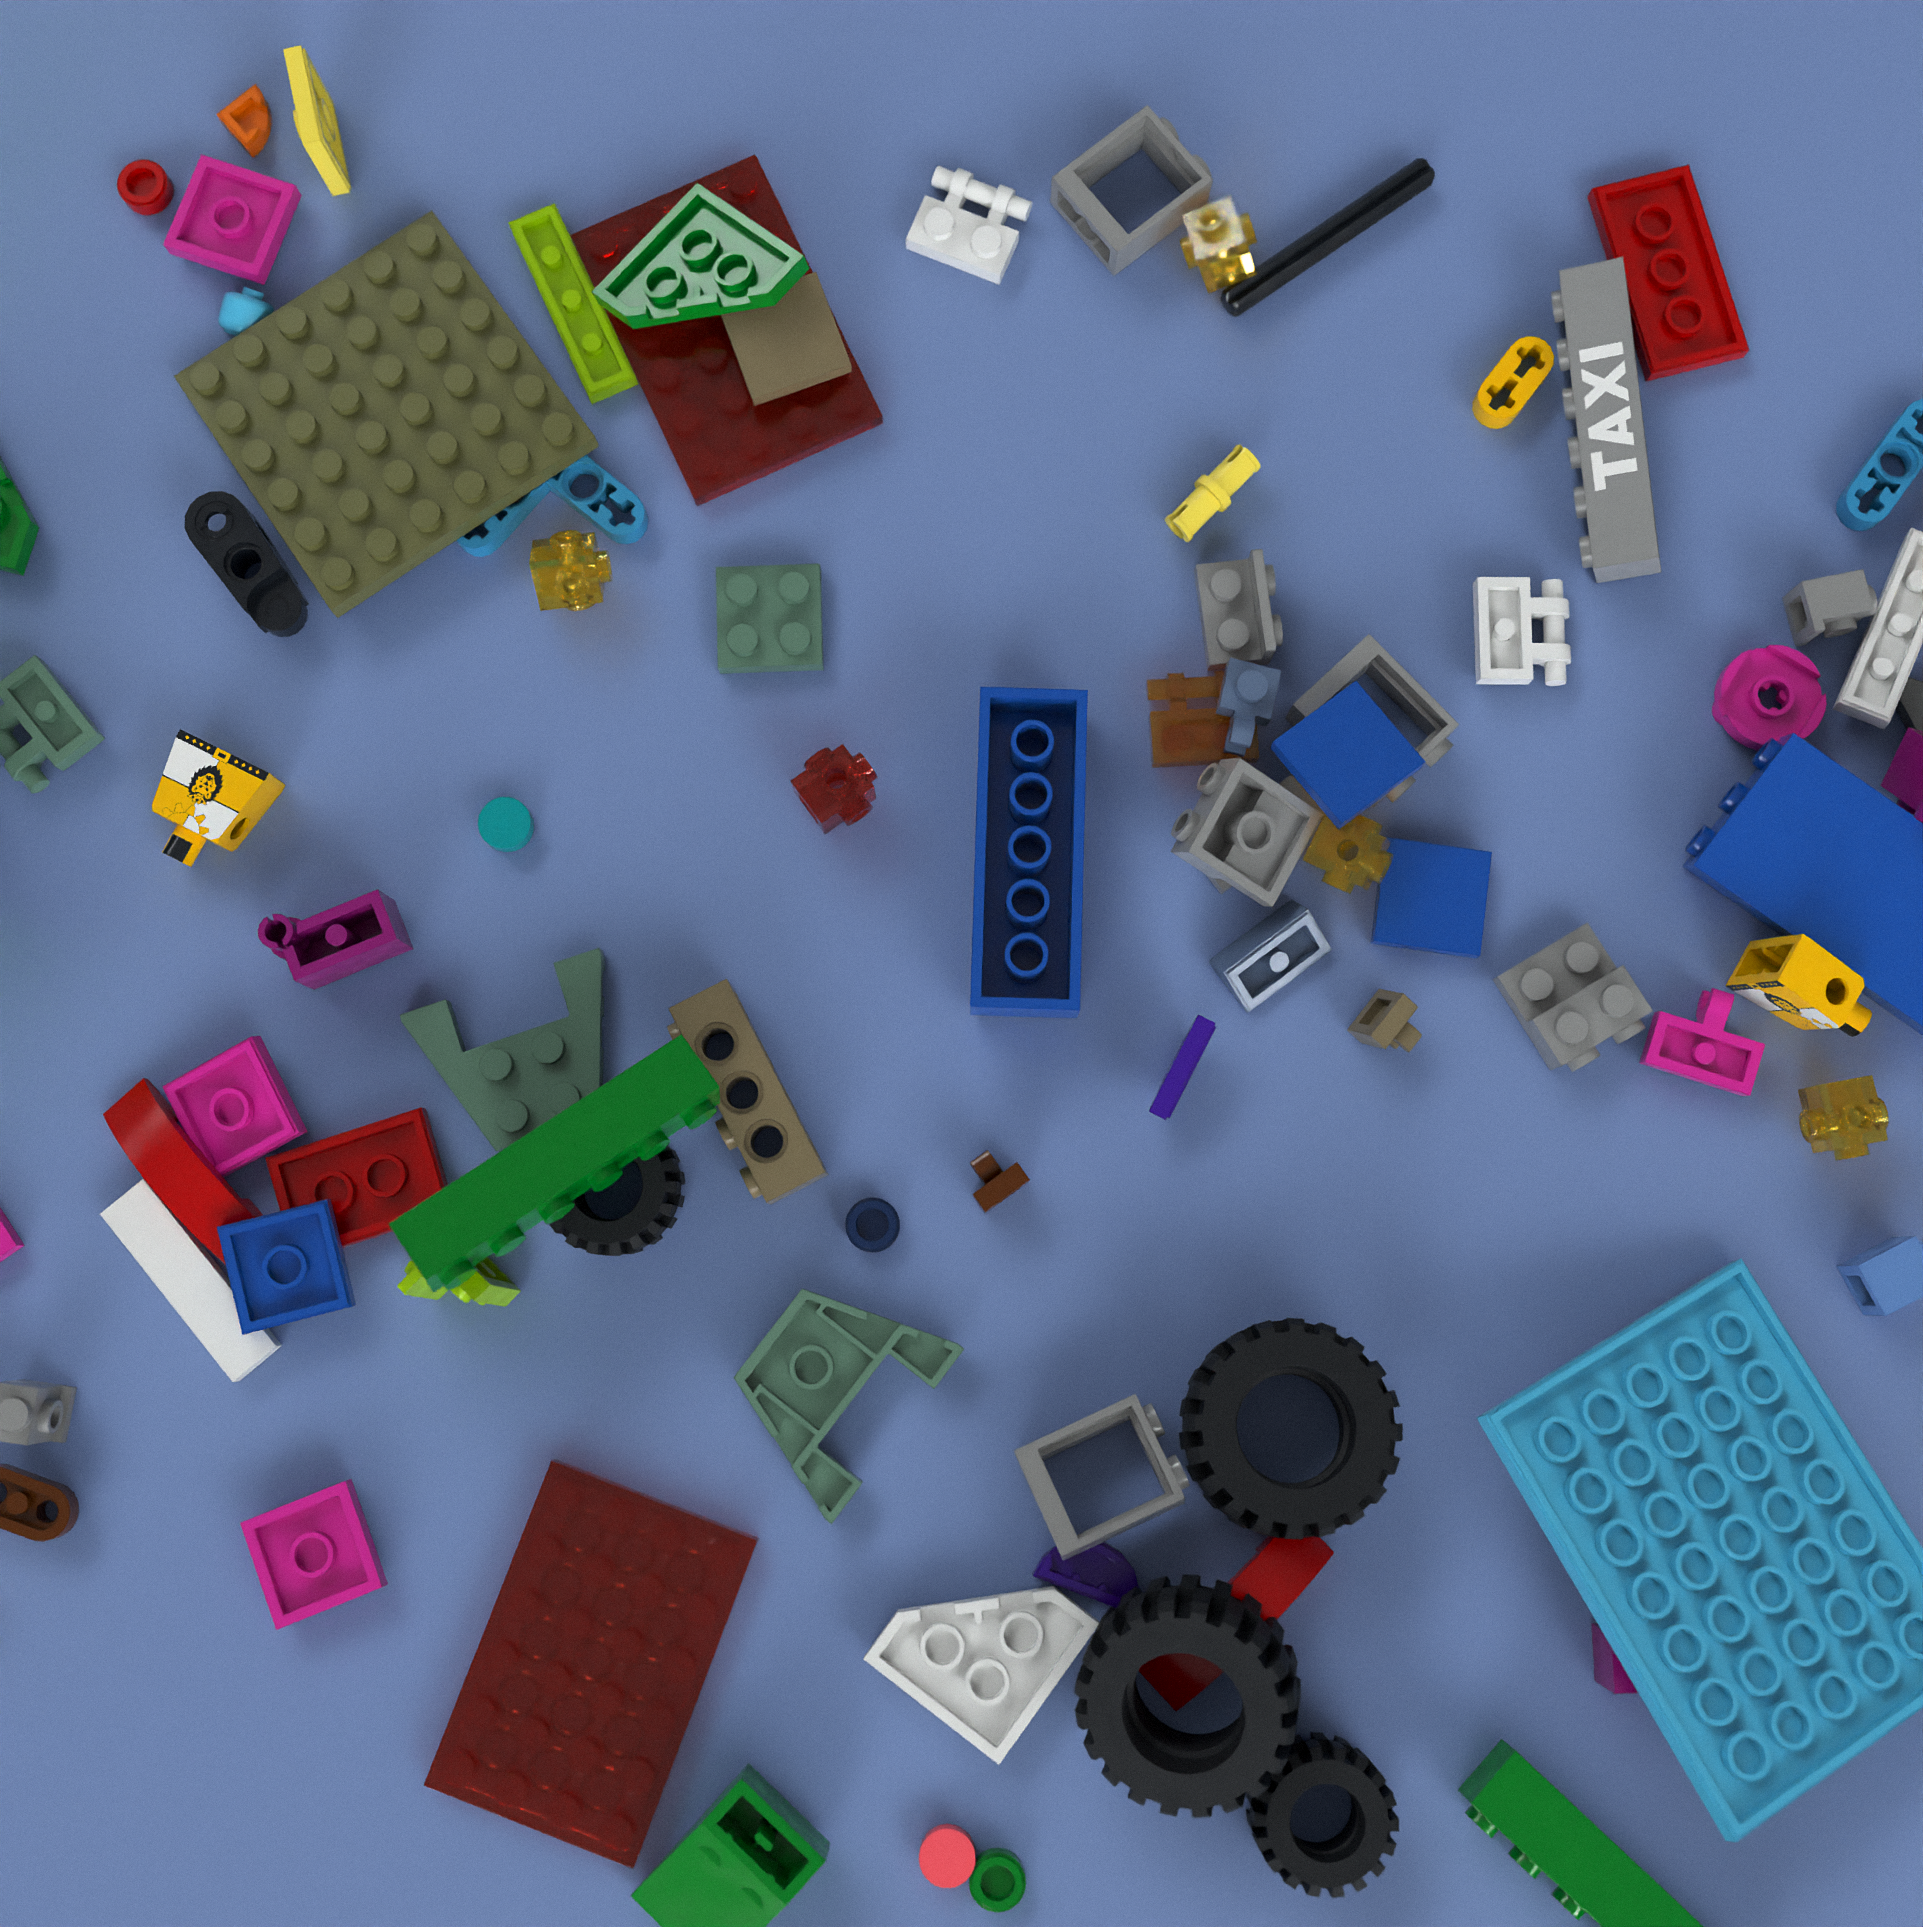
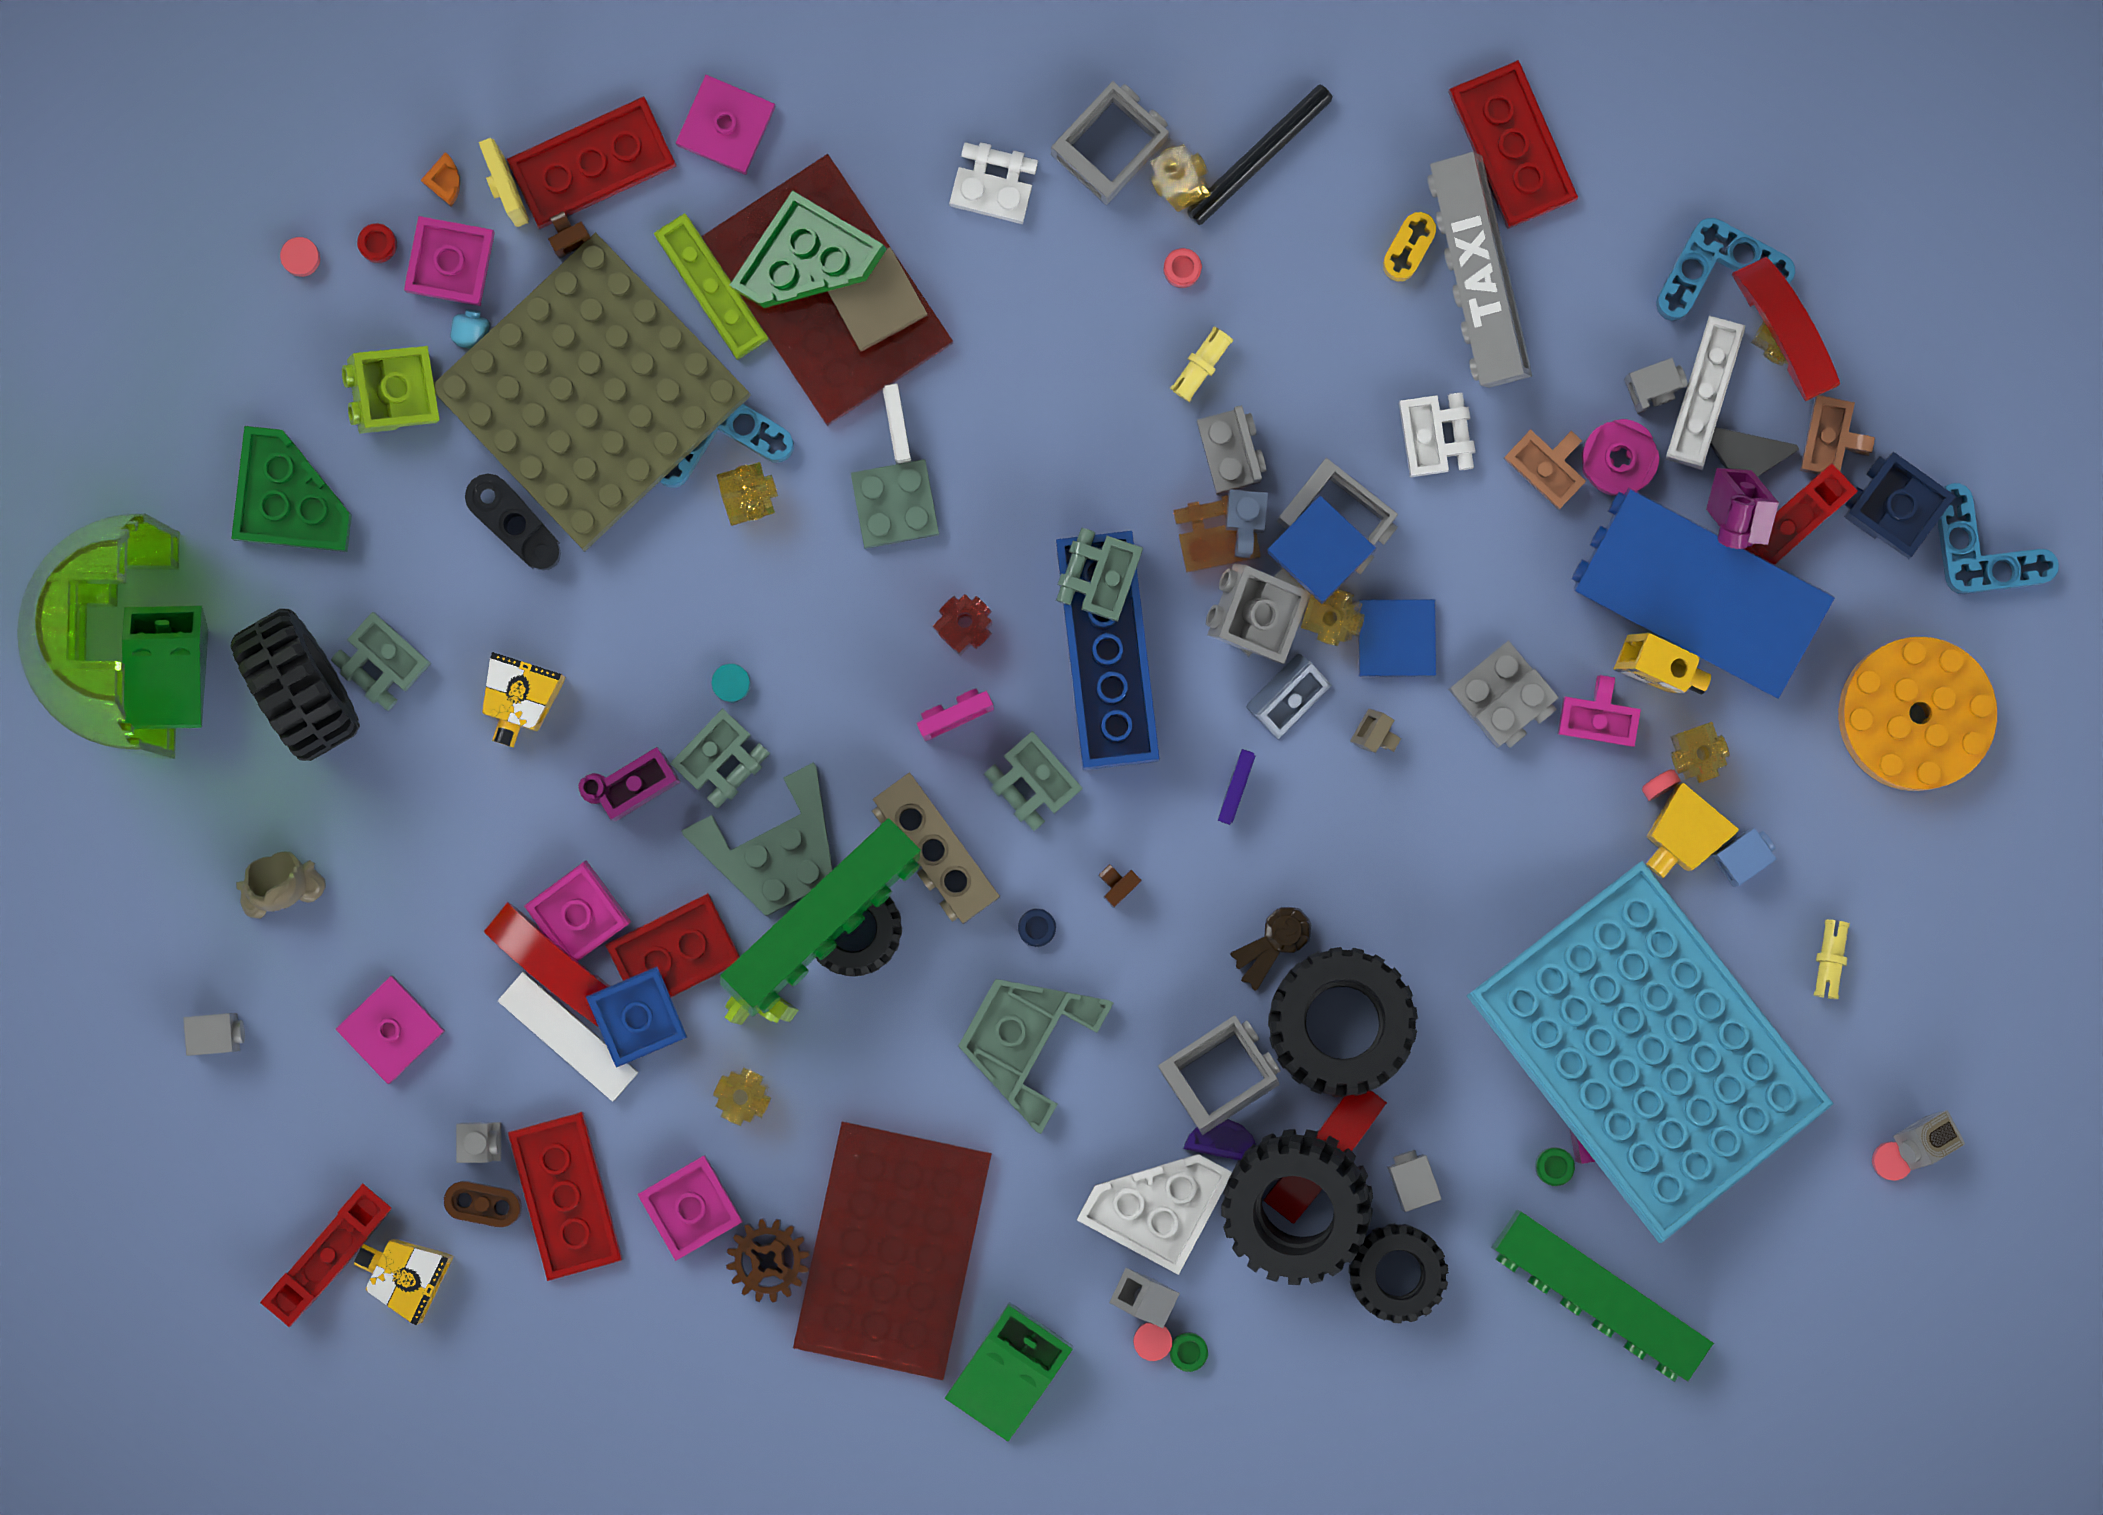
camera: 10 degrees left, 5 degrees up
(40, 189) = (300, 256): none -> coral tile
(119, 368) = (390, 389): none -> lime plate
(143, 1509) = (565, 1196): none -> red tile
(391, 207) = (568, 237): none -> reddish brown tile
(426, 1664) = (786, 1273): none -> reddish brown gear
(432, 1403) = (757, 1099): none -> clear yellow brick
(444, 126) = (591, 162): none -> red tile
(463, 909) = (710, 751): none -> sand green plate
(628, 102) = (725, 124): none -> dark pink plate
(788, 509) = (896, 424): none -> white tile
(818, 905) = (969, 707): none -> dark pink plate
(912, 1008) = (1041, 772): none -> sand green plate
(943, 1793) = (1144, 1297): none -> light grey brick
(1047, 750) = (1110, 578): none -> sand green plate
(1204, 367) = (1182, 268): none -> coral tile
(1221, 1284) = (1285, 932): none -> dark brown piece
(1360, 1677) = (1413, 1181): none -> light grey brick
(1565, 1684) = (1554, 1166): none -> green tile
(1667, 696) = (1546, 467): none -> nougat plate
(1780, 1154) = (1661, 784): none -> coral tile
(1812, 1226) = (1686, 832): none -> yellow torso

